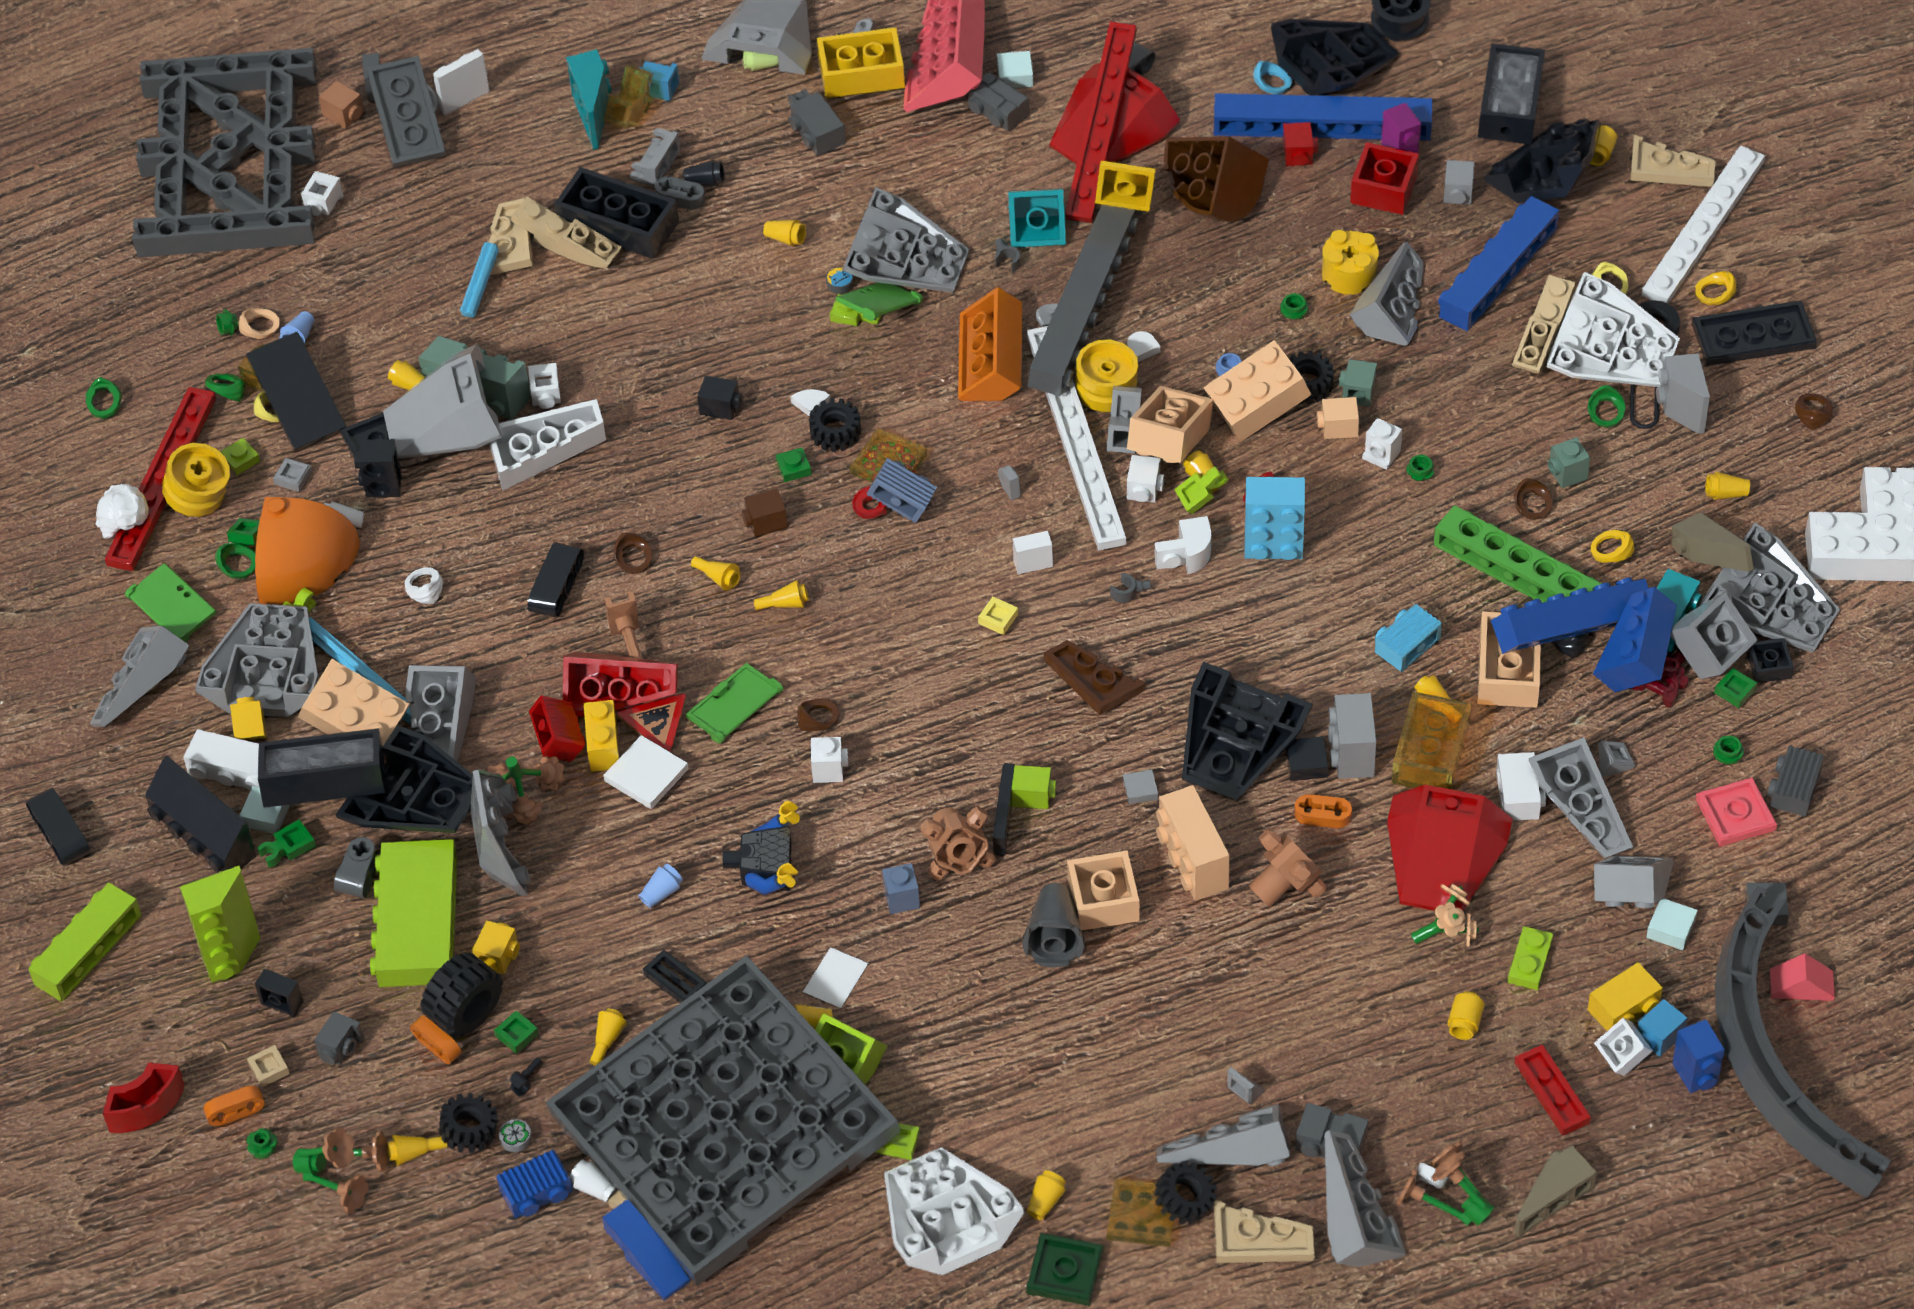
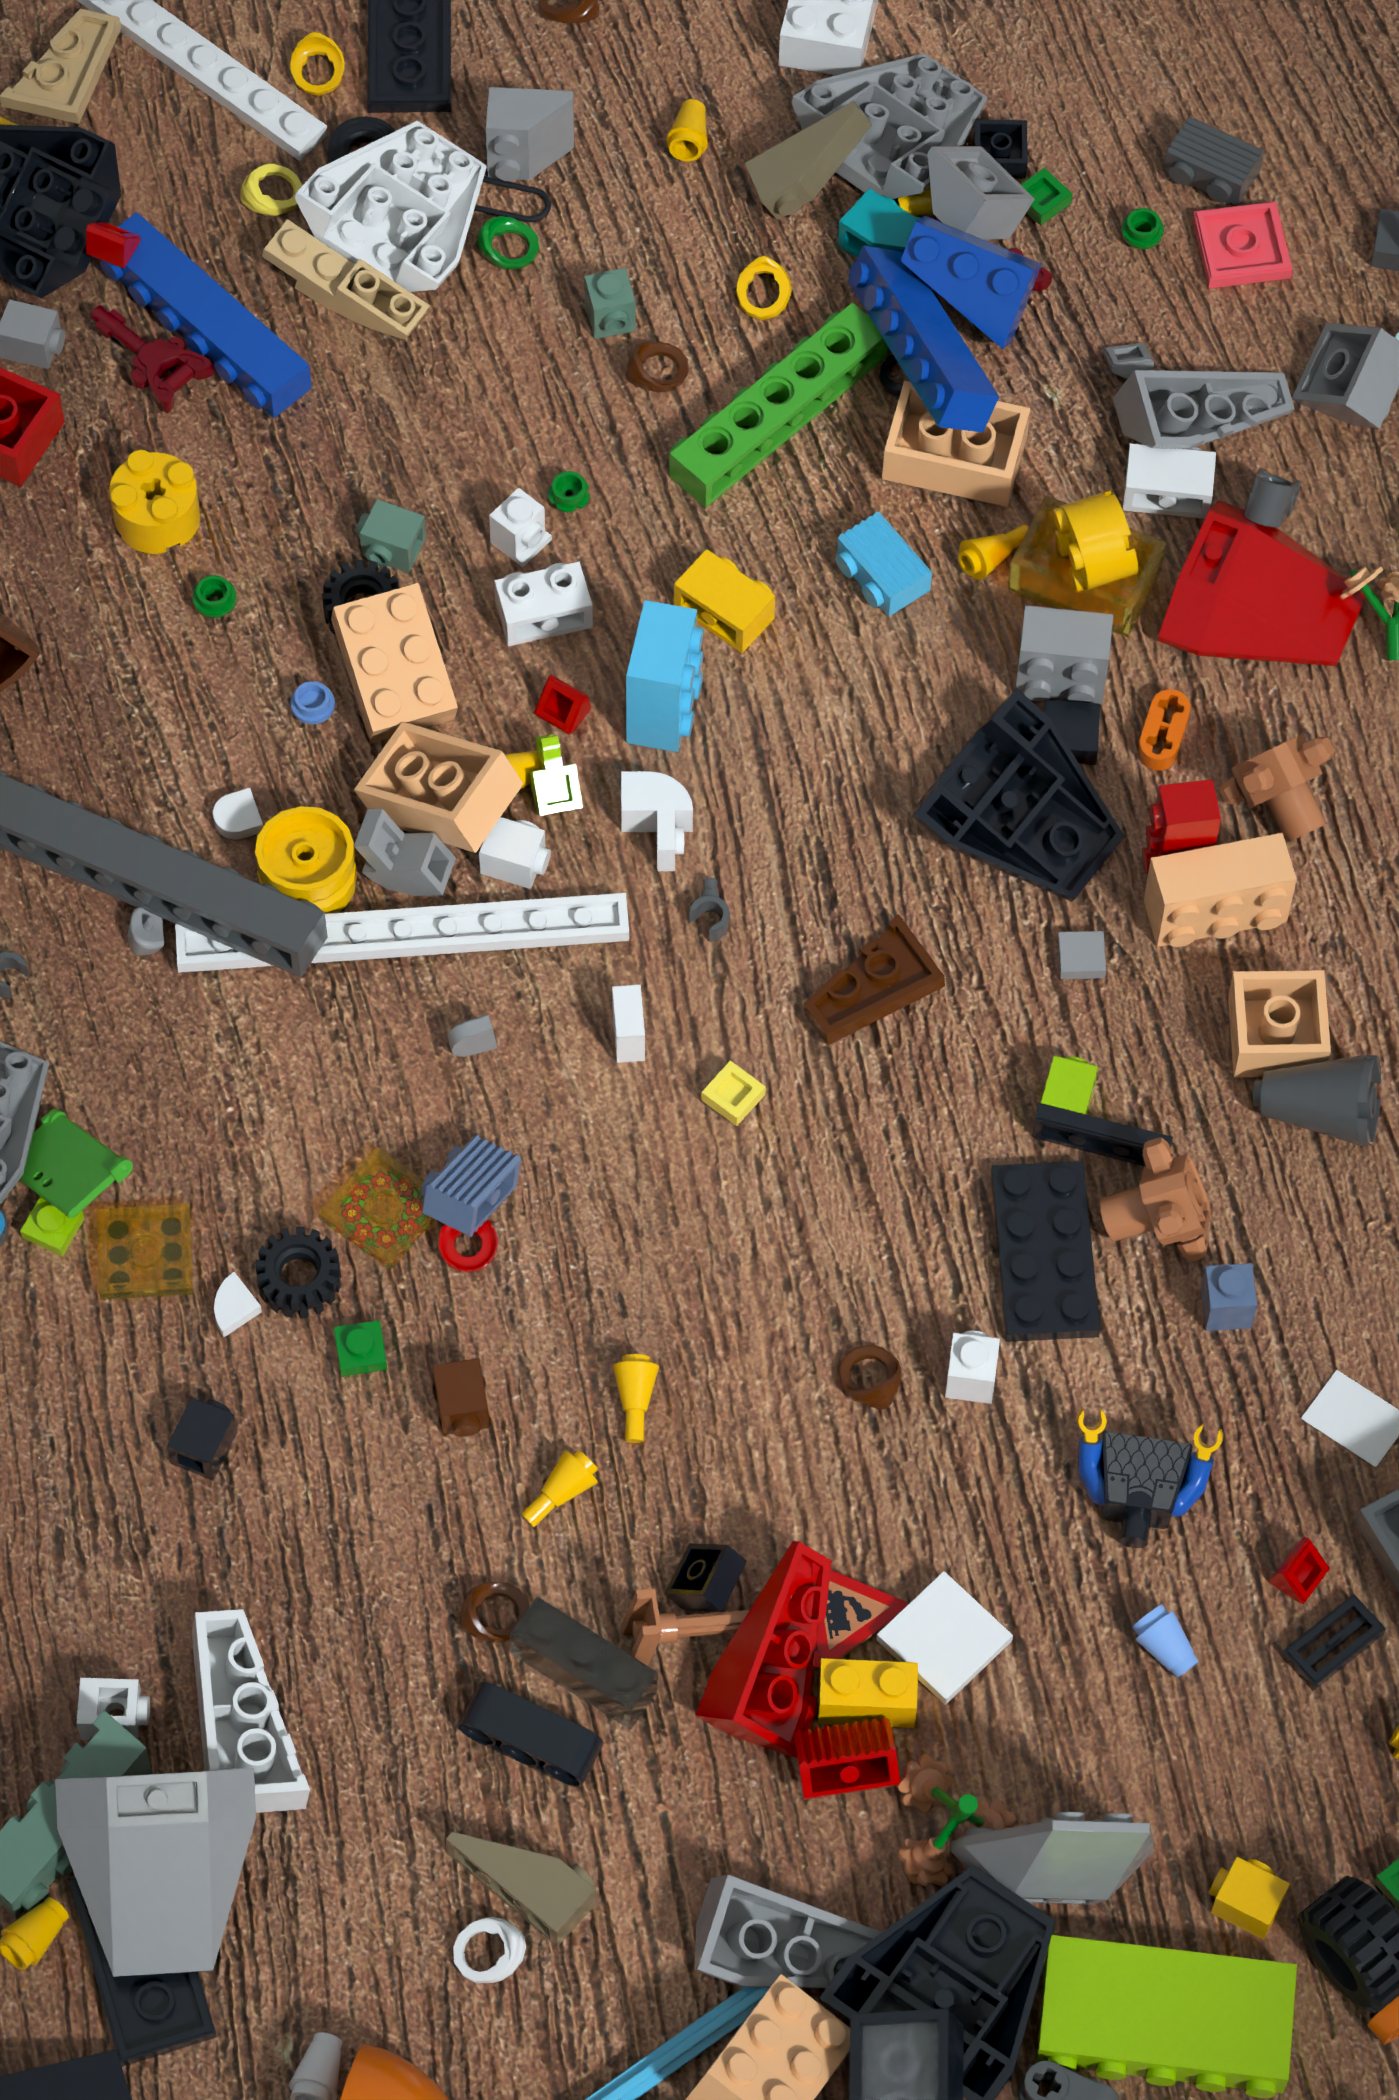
camera: 85 degrees left, 10 degrees up
(379, 468) = (247, 1989): black brick -> none
(460, 596) = (530, 1883): none -> dark tan slope
(611, 579) = (583, 1663): none -> clear smoke brick
(664, 644) = (705, 1577): none -> black piece
(720, 952) = (1300, 1571): none -> red slope
(738, 700) = (813, 1483): bright green door -> none
(838, 355) = (145, 1251): none -> clear yellow tile
(919, 792) = (1045, 1251): none -> black plate
(990, 348) = (197, 1025): orange slope -> none
(1225, 804) = (1182, 819): none -> red brick
(1330, 465) = (543, 603): none -> white brick
(1338, 418) = (454, 574): light nougat brick -> none
(1357, 557) = (725, 600): none -> yellow brick
(1390, 300) = (250, 477): light grey wedge -> none
(1426, 719) = (1096, 540): none -> yellow brick
(1458, 246) = (154, 358): none -> dark red piece
(1516, 841) = (1271, 499): none -> dark grey piece
(1529, 198) = (111, 243): none -> red slope

